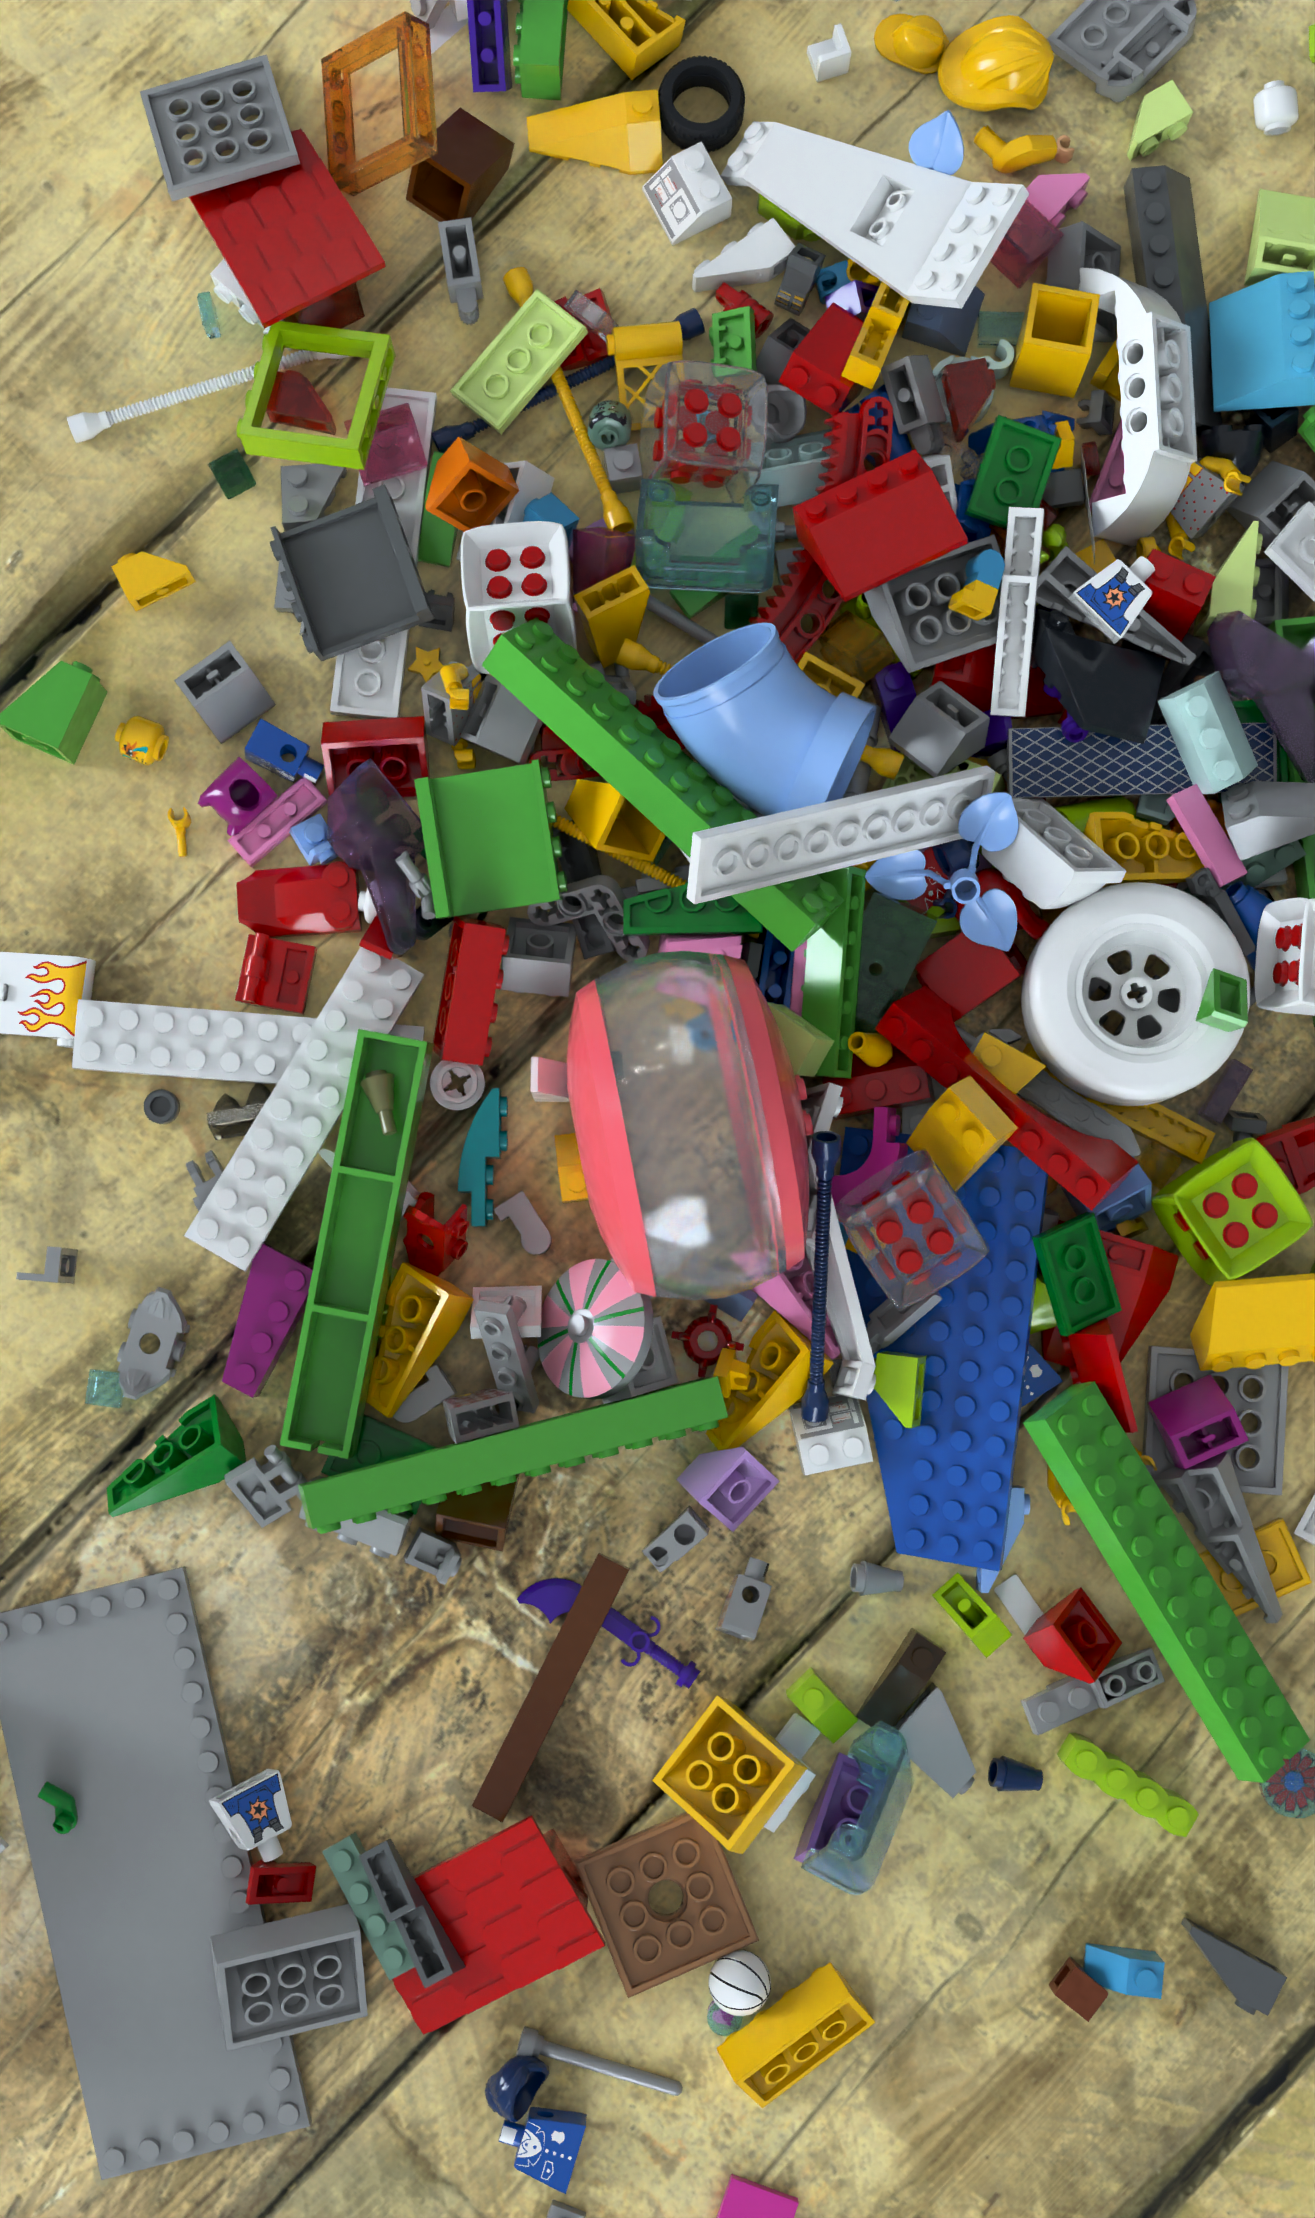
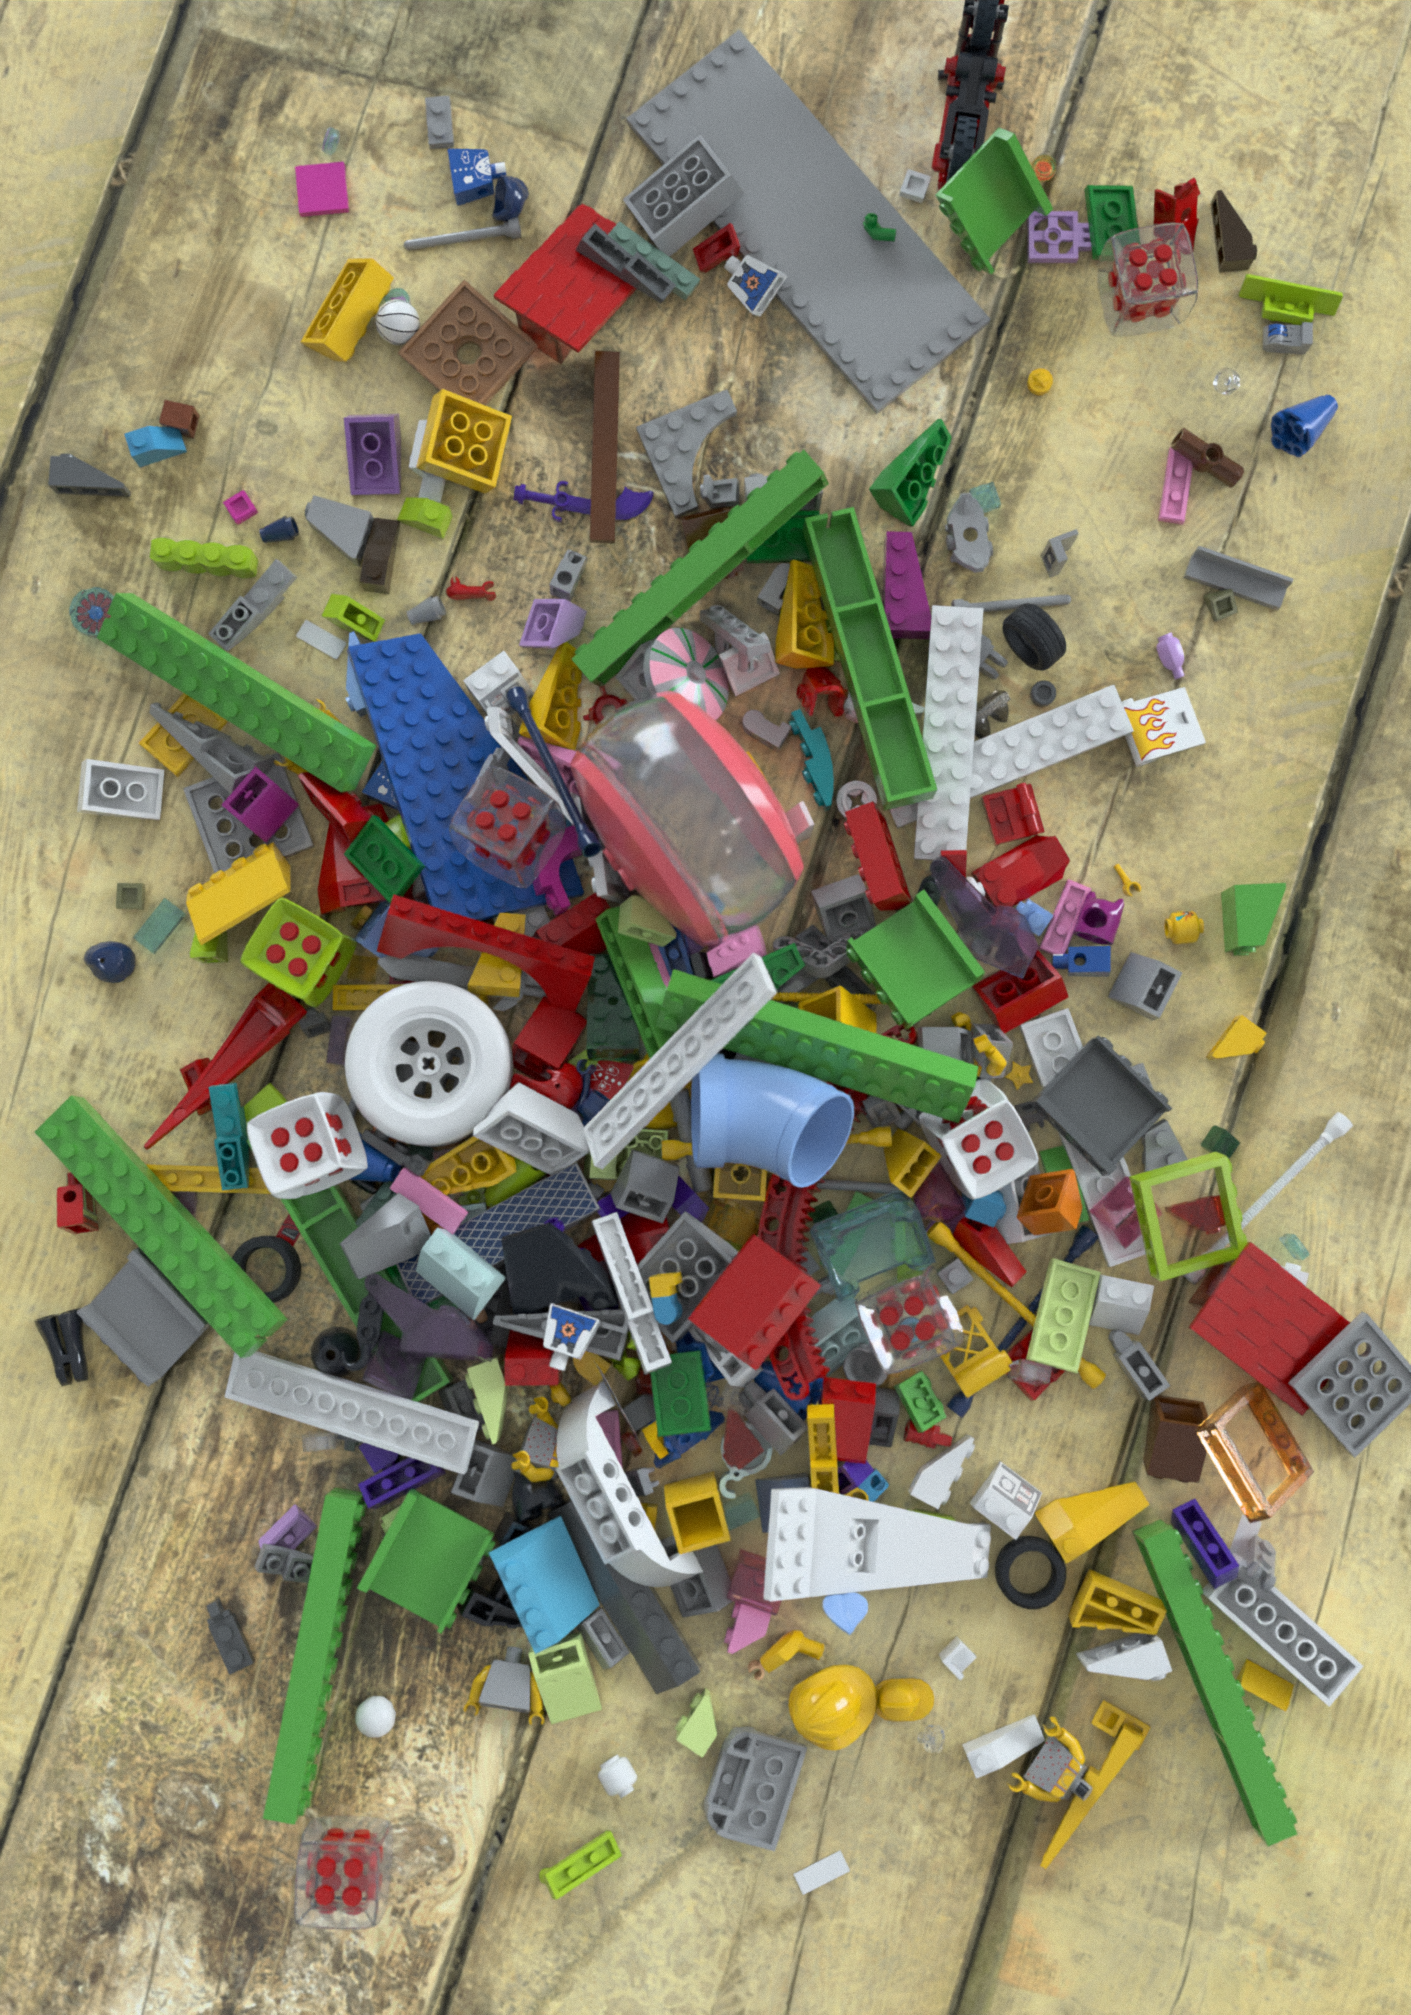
camera: 160 degrees right, 0 degrees up
(138, 1173) = (1034, 636): none -> black tyre
(204, 1259) = (1014, 603): none -> light grey piece
(258, 1491) = (854, 478): light grey plate -> none
(380, 1092) = (901, 757): olive cone -> none
(419, 884) = (948, 909): light grey piece -> none
(441, 347) = (1121, 1304): none -> white slope
(460, 1650) = (675, 442): none -> light grey plate
(475, 1414) = (734, 587): light grey torso -> none
(567, 470) = (989, 1249): none -> red slope
(609, 425) = (977, 1298): sand green head -> none
(731, 1372) = (583, 693): yellow tile -> none
(738, 1616) = (504, 544): light grey torso -> none
(799, 278) = (898, 1473): dark grey leg -> none
(817, 1581) = (461, 592): none -> red piece
(857, 1852) = (356, 423): clear light blue windscreen -> none
(871, 1048) = (592, 944): yellow cone -> none
(901, 1384) = (468, 735): lime slope -> none
(962, 1131) = (503, 910): yellow slope -> none
(984, 919) = (550, 1070): light blue plant -> none
(1050, 1833) = (240, 507): none -> dark pink tile
(1074, 1638) = (279, 633): red slope -> none
(1222, 263) = (602, 1639): none -> light grey slope
(1224, 1002) = (366, 1076): bright green slope -> none

